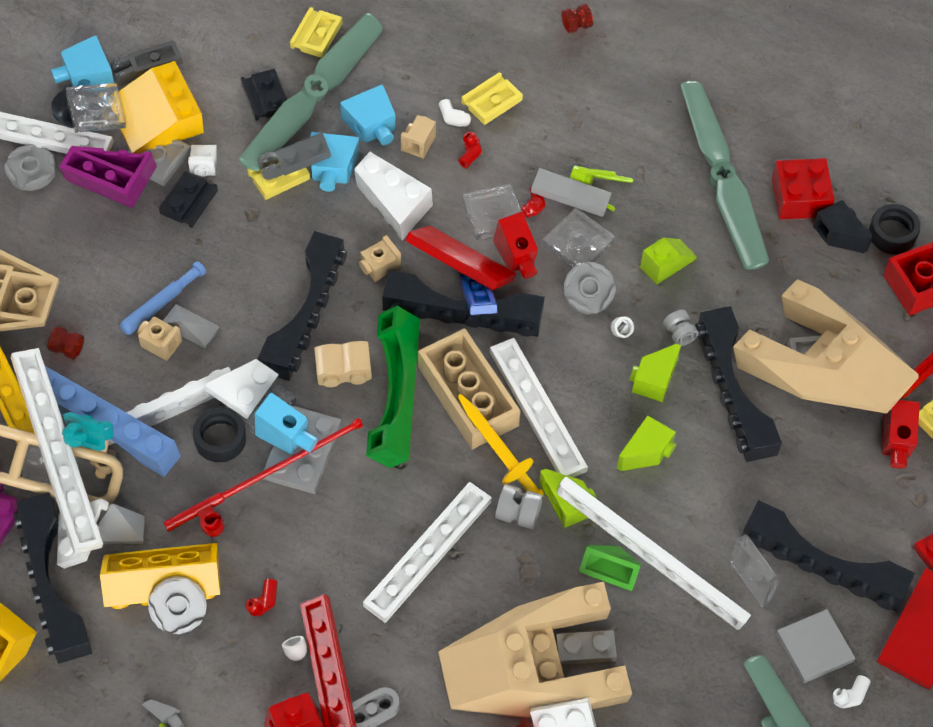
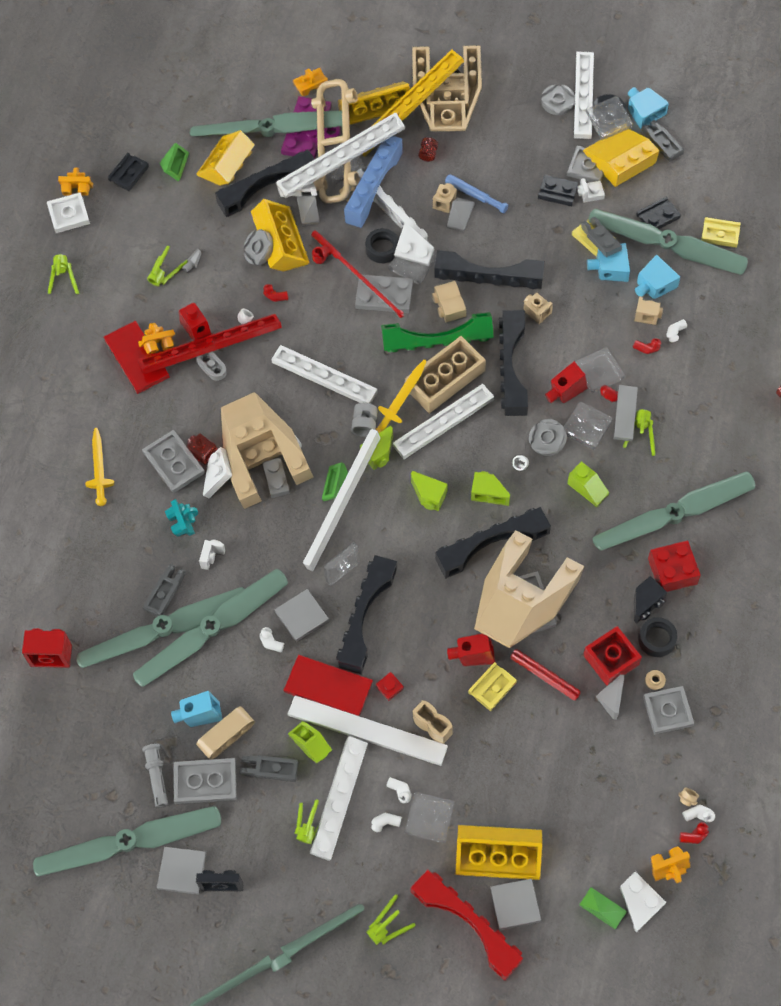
camera: 85 degrees right, 5 degrees up
(86, 431) = (355, 166): teal hips -> none
(109, 173) = (557, 139): magenta wedge -> none
(283, 426) = (386, 270): medium azure torso -> none
(393, 193) = (590, 304): white wedge -> none
(460, 257) = (548, 352): red tile -> none
(477, 296) = (519, 366): blue tile -> none
(492, 98) = (696, 351): light yellow plate -> none
(682, 330) = (529, 499): light grey wheel -> none

